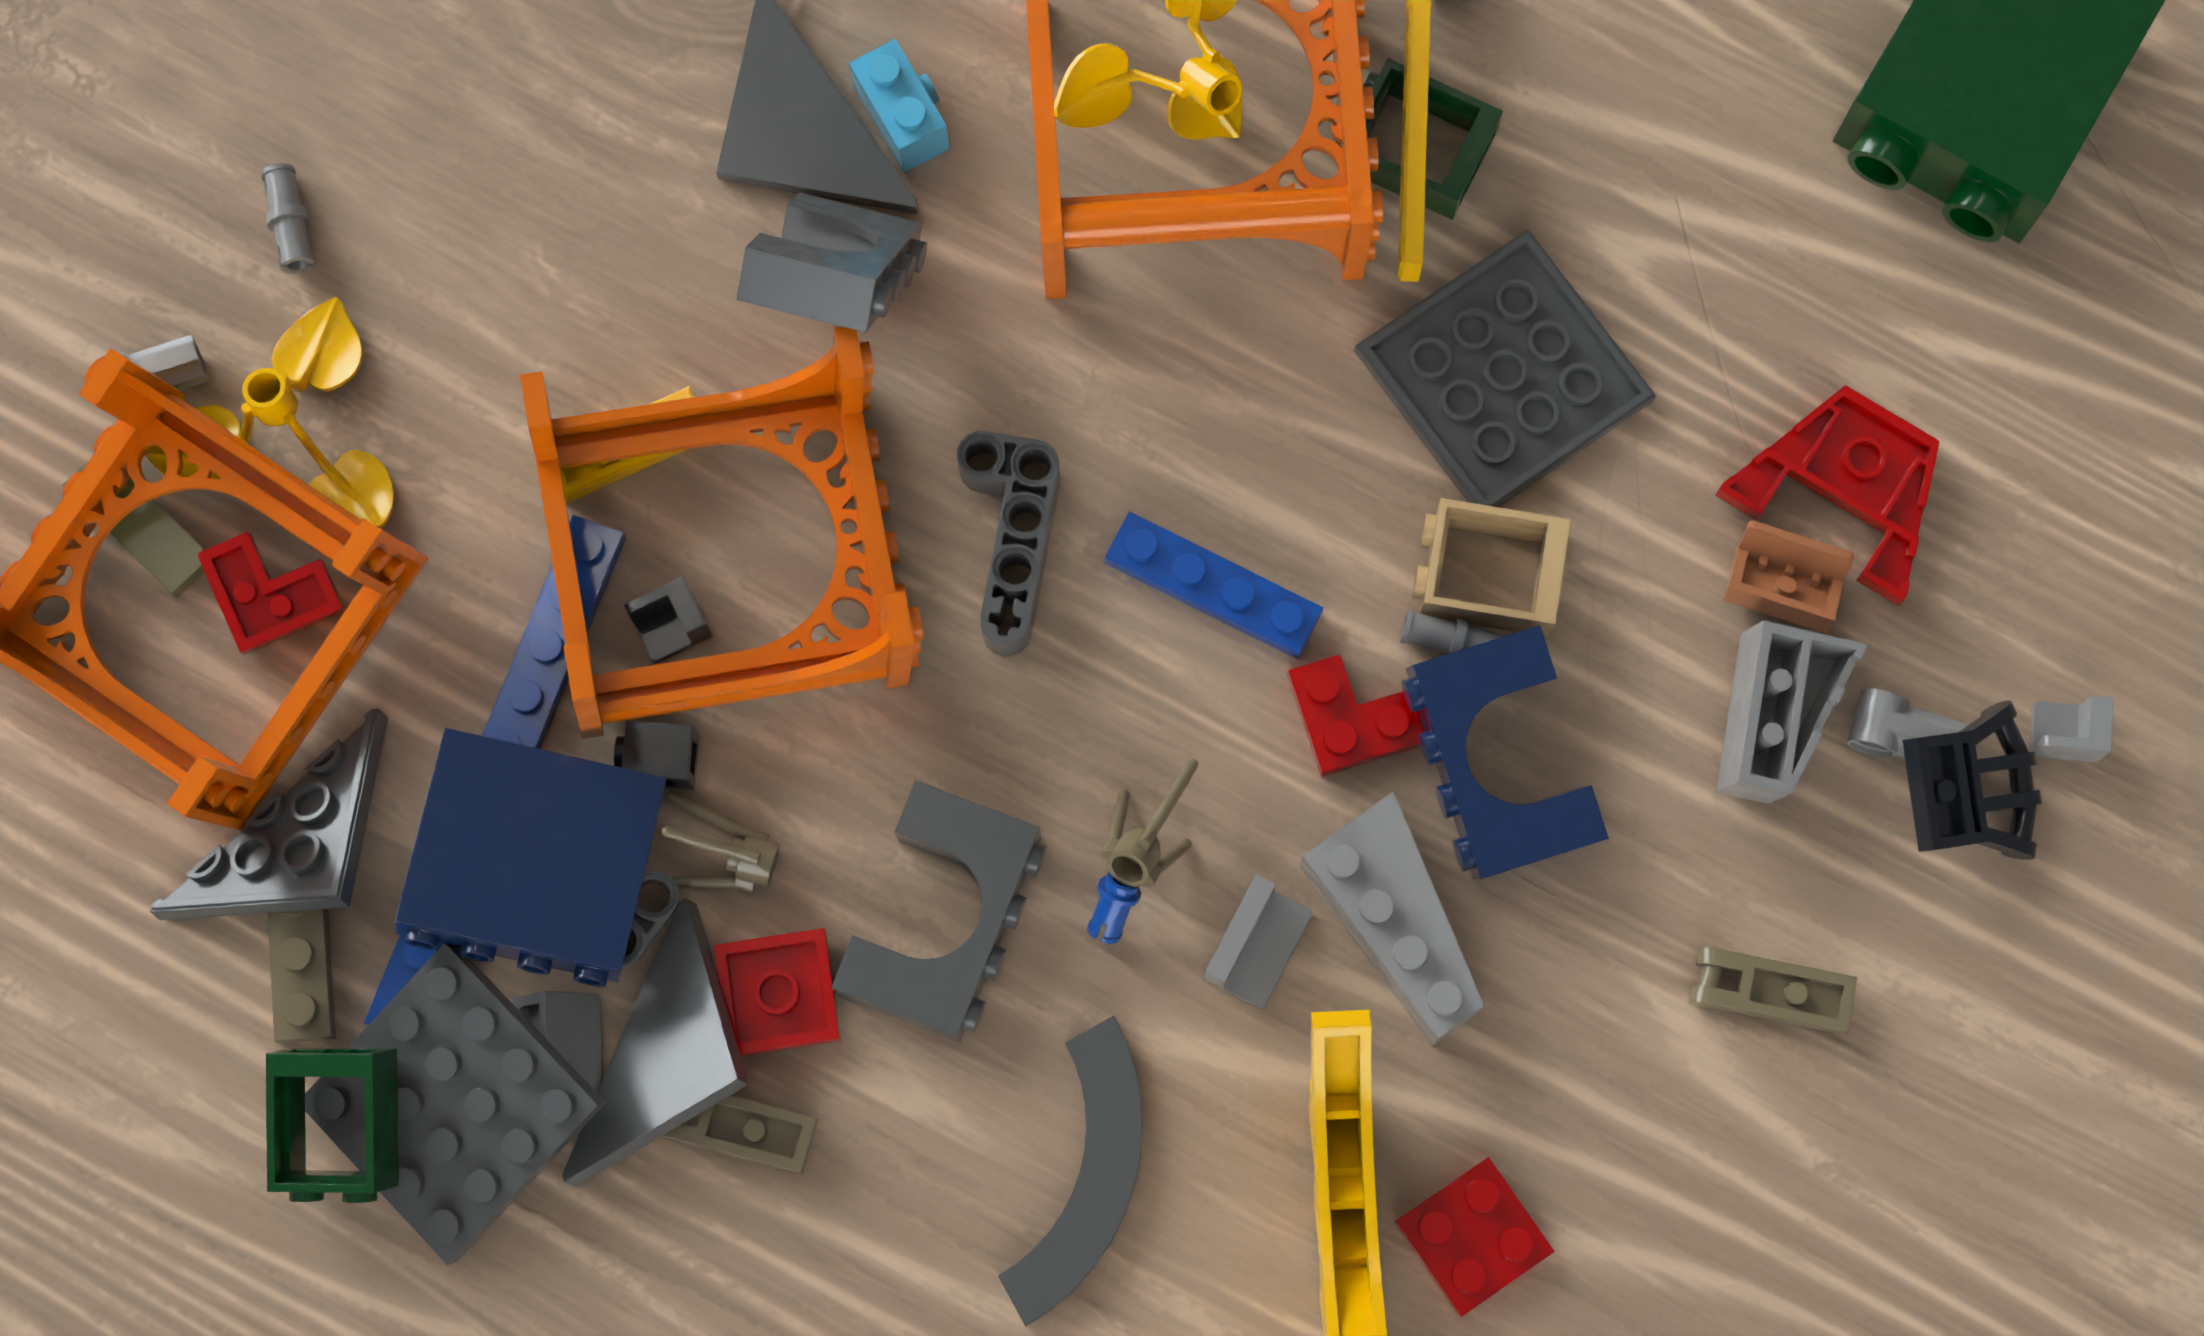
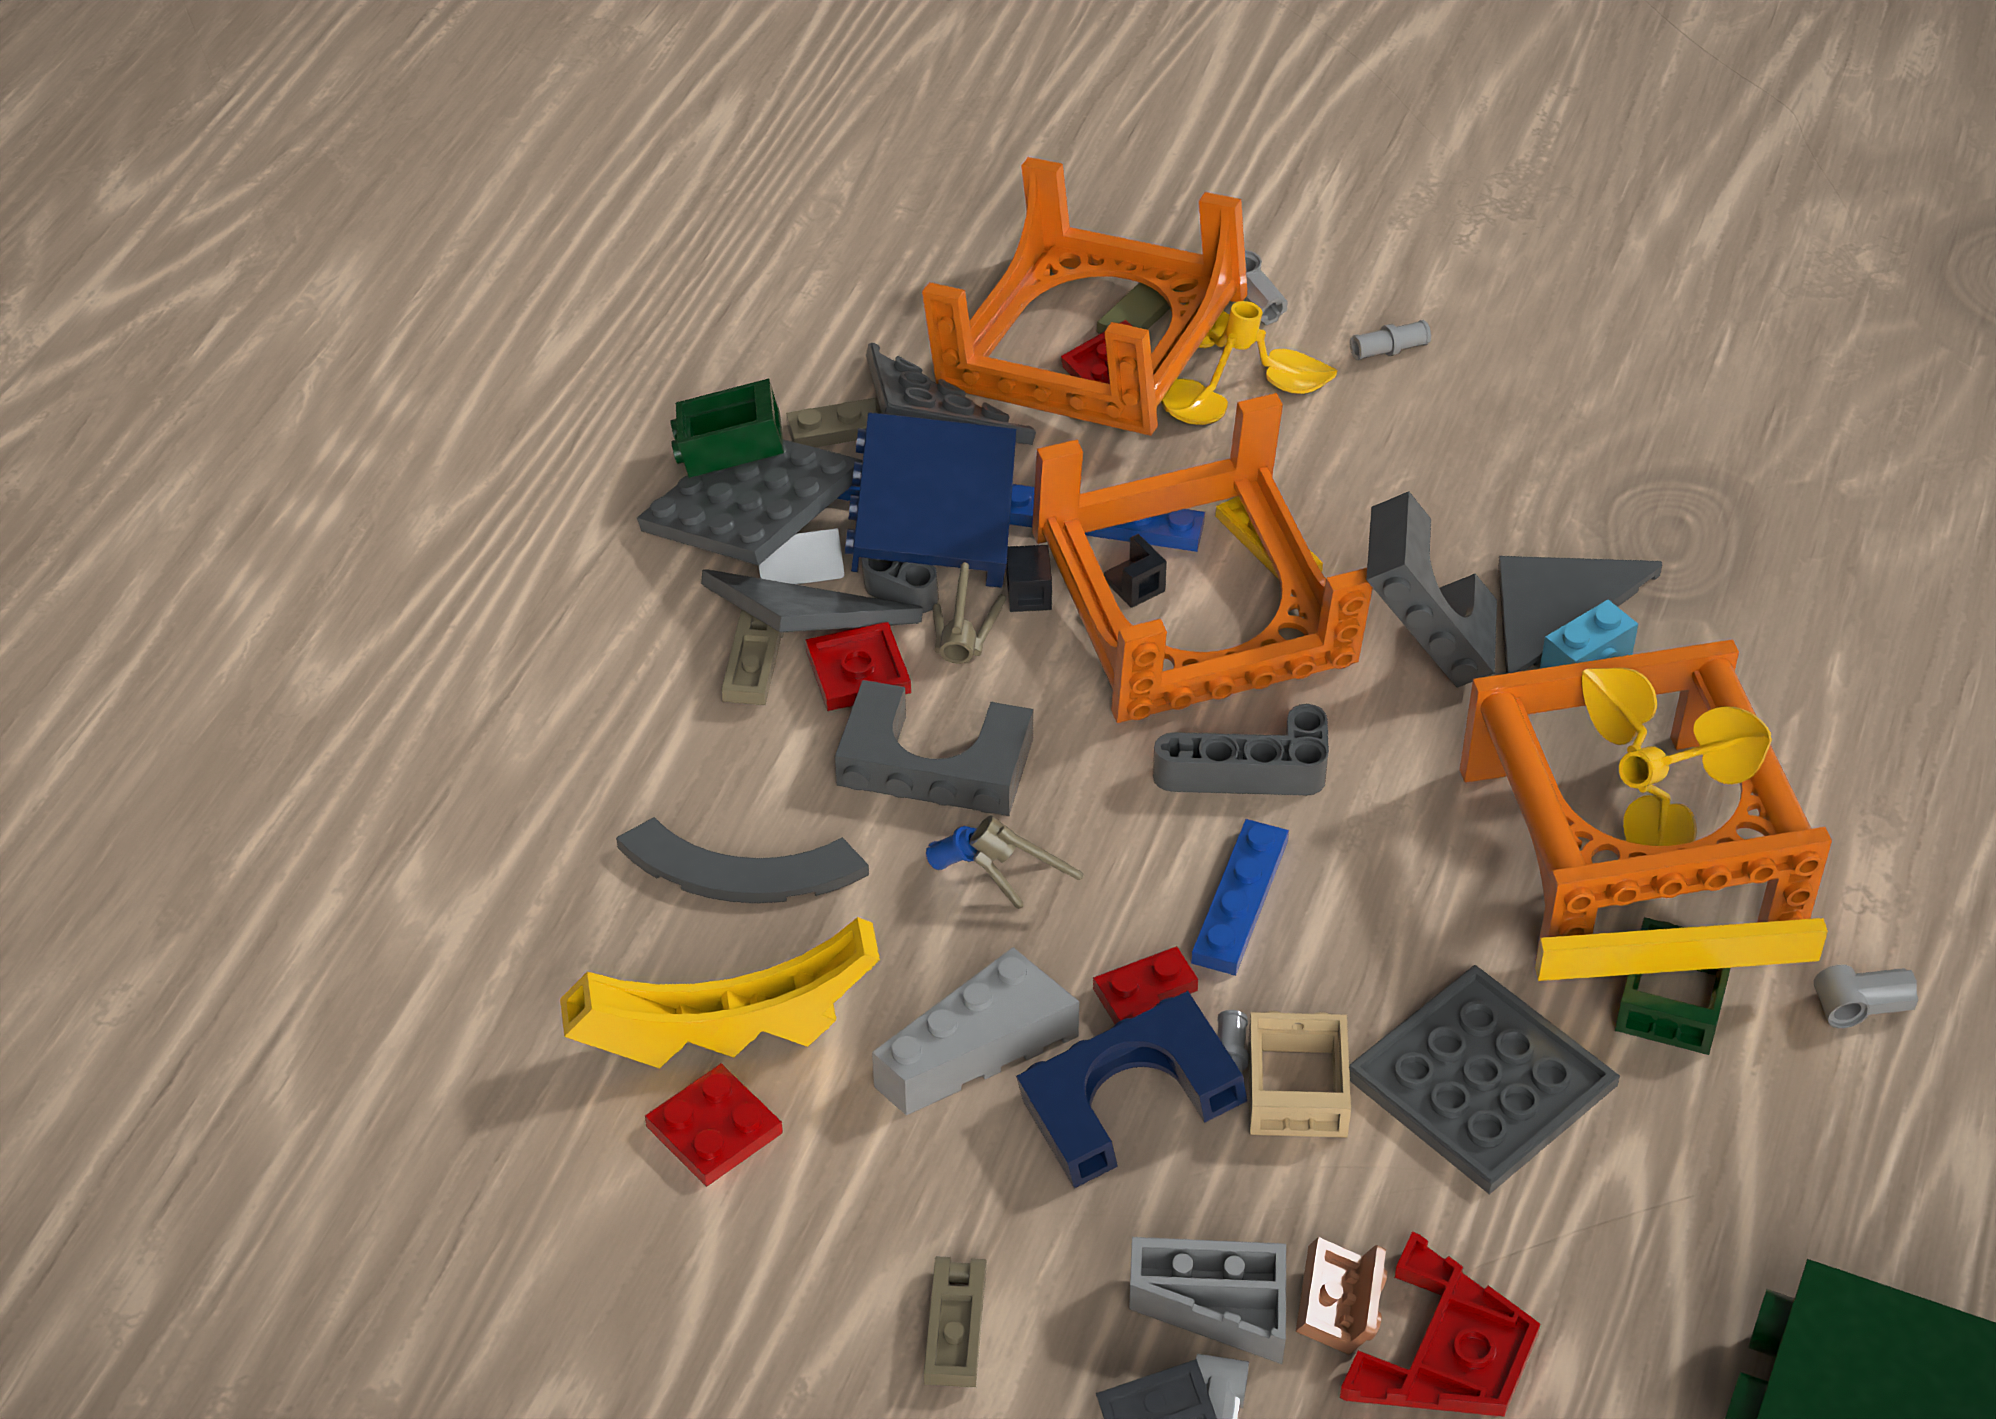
camera: 80 degrees right, 30 degrees down
(1257, 943) = (942, 945): light grey panel -> none

